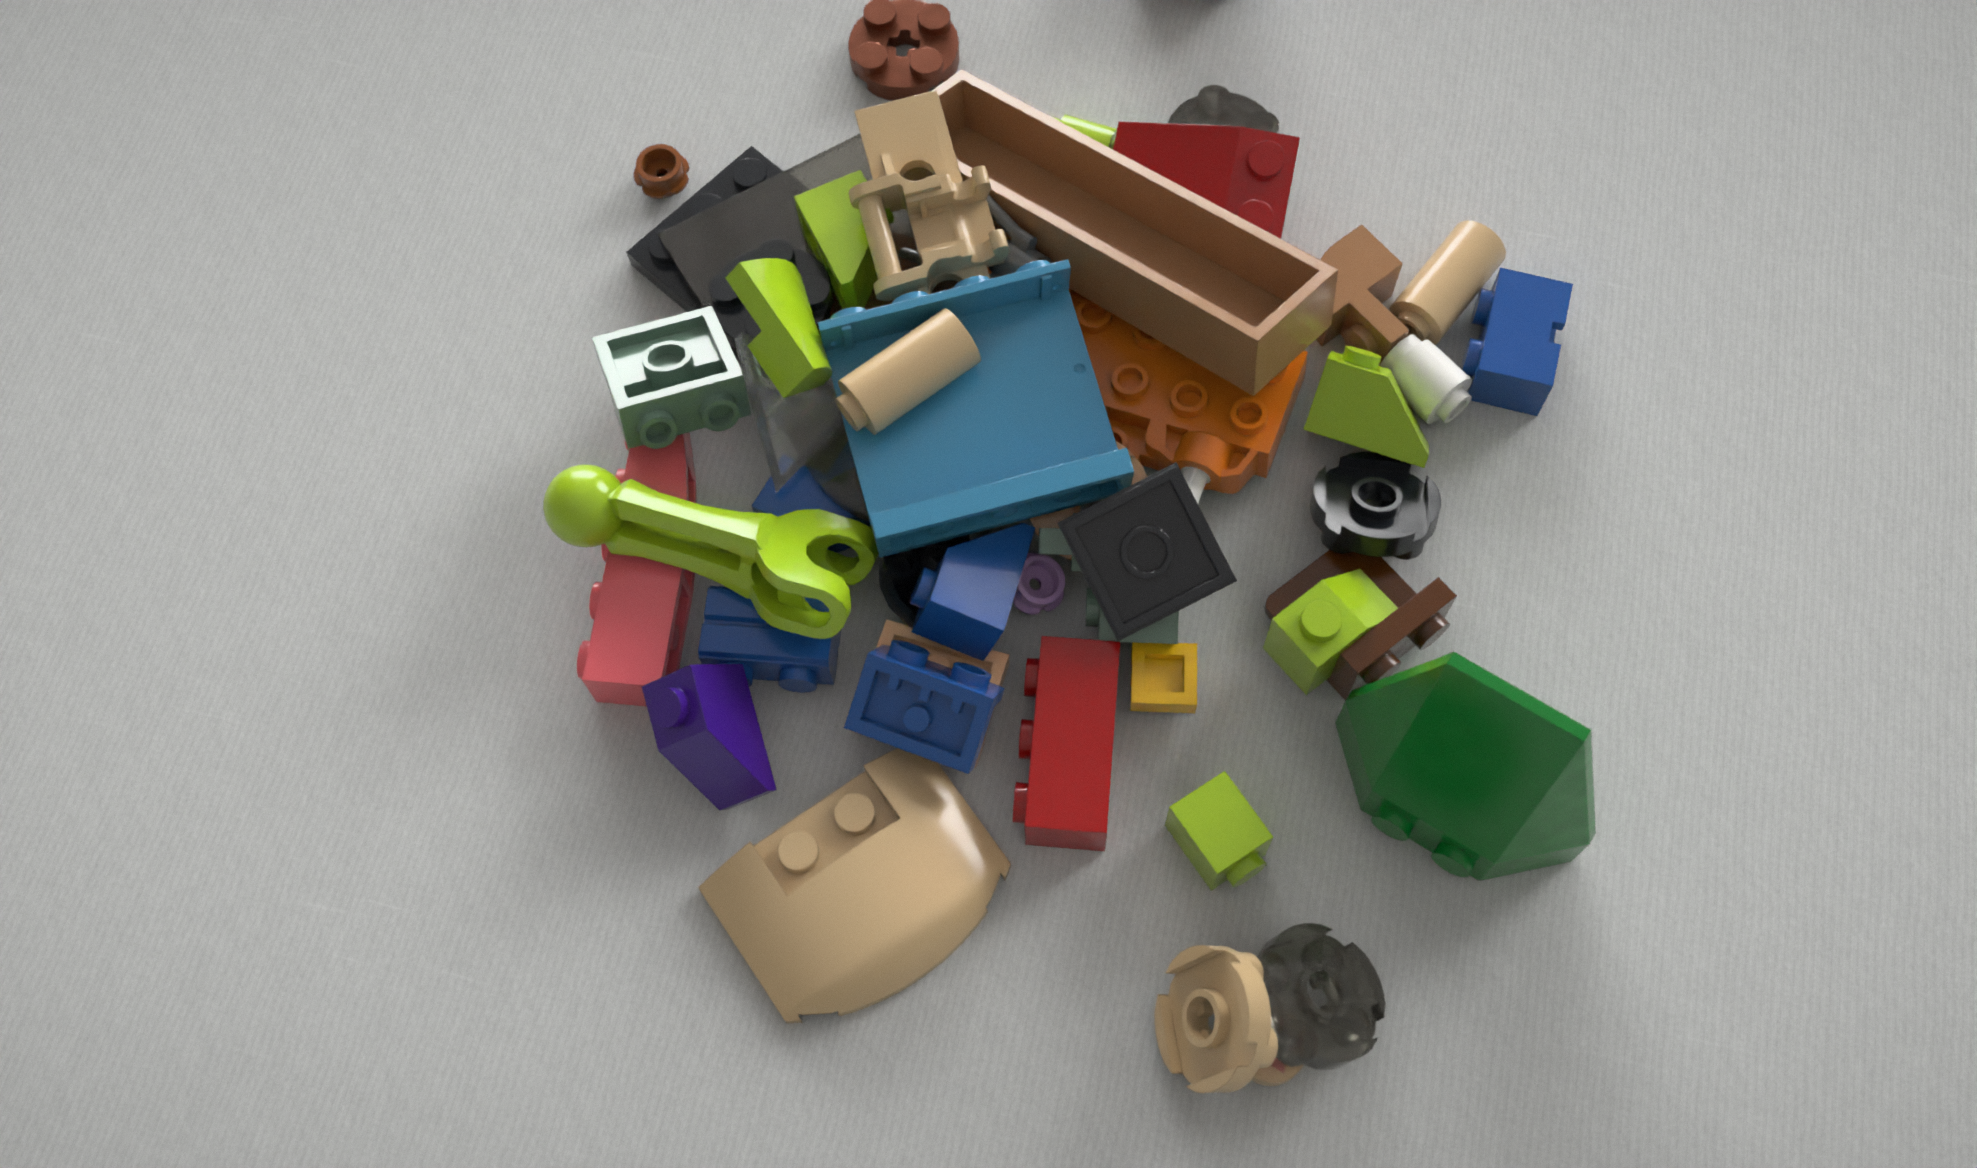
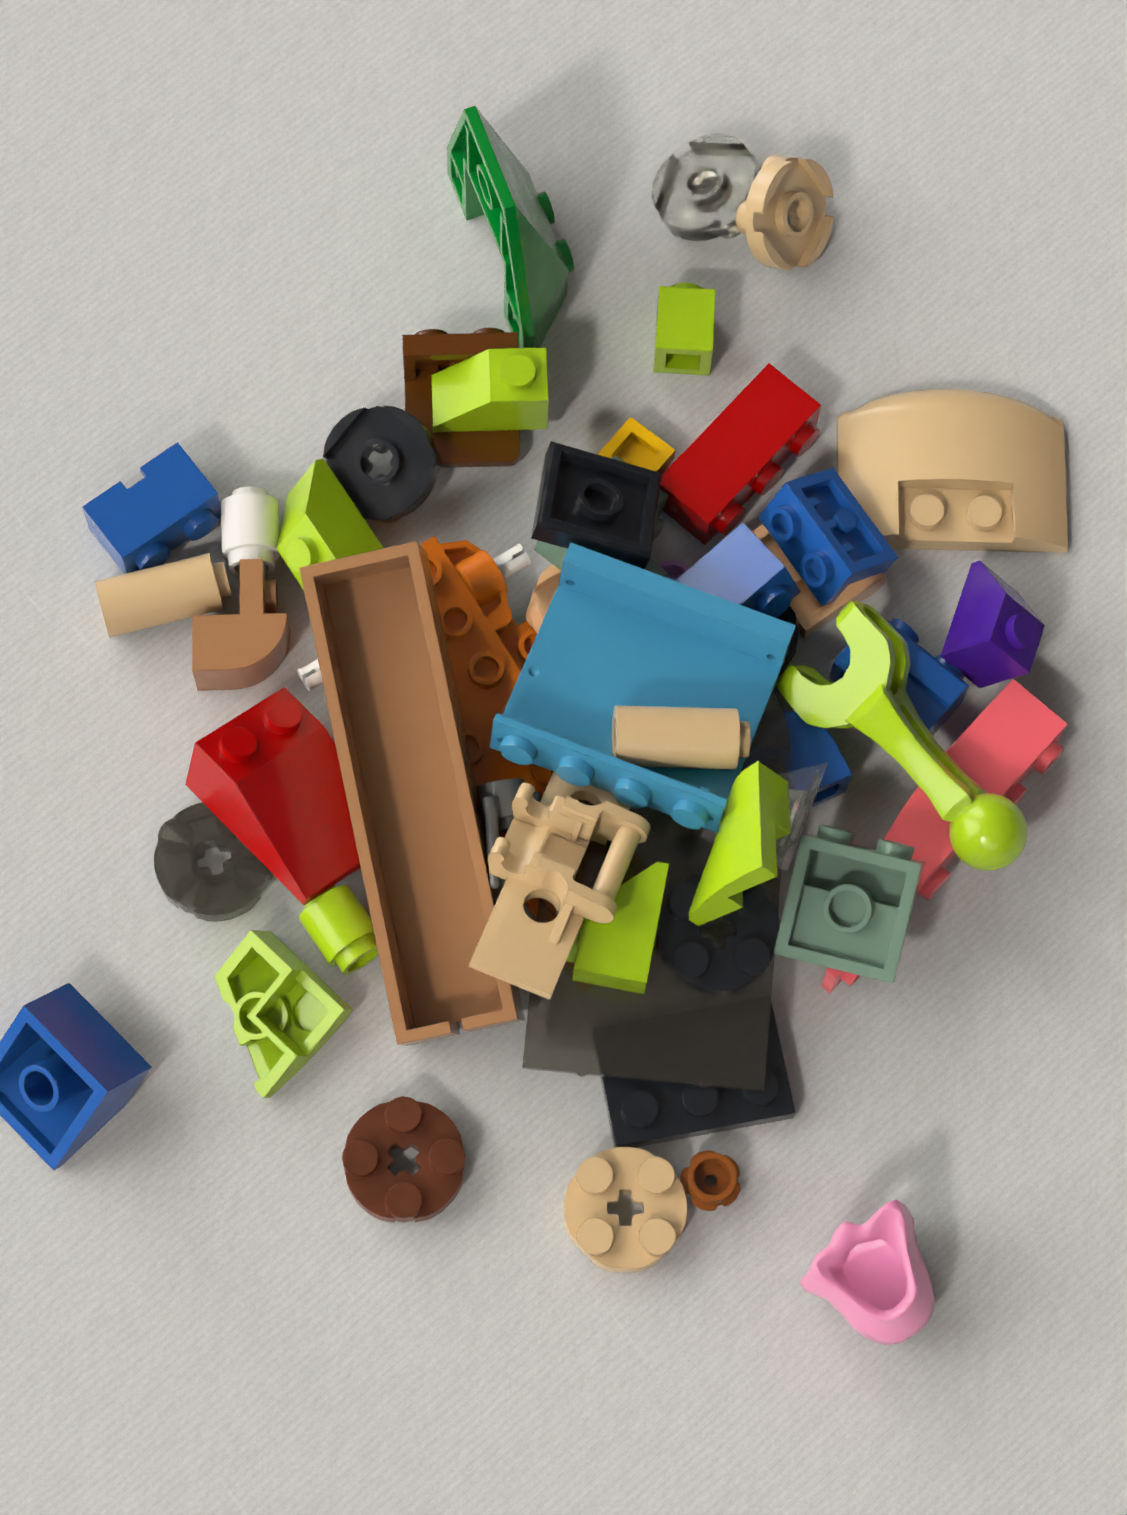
camera: 150 degrees left, 5 degrees up
(483, 161) = (876, 1276): none -> bright pink piece
(711, 92) = (599, 1234): none -> tan plate
(1084, 81) = (277, 1008): none -> lime slope

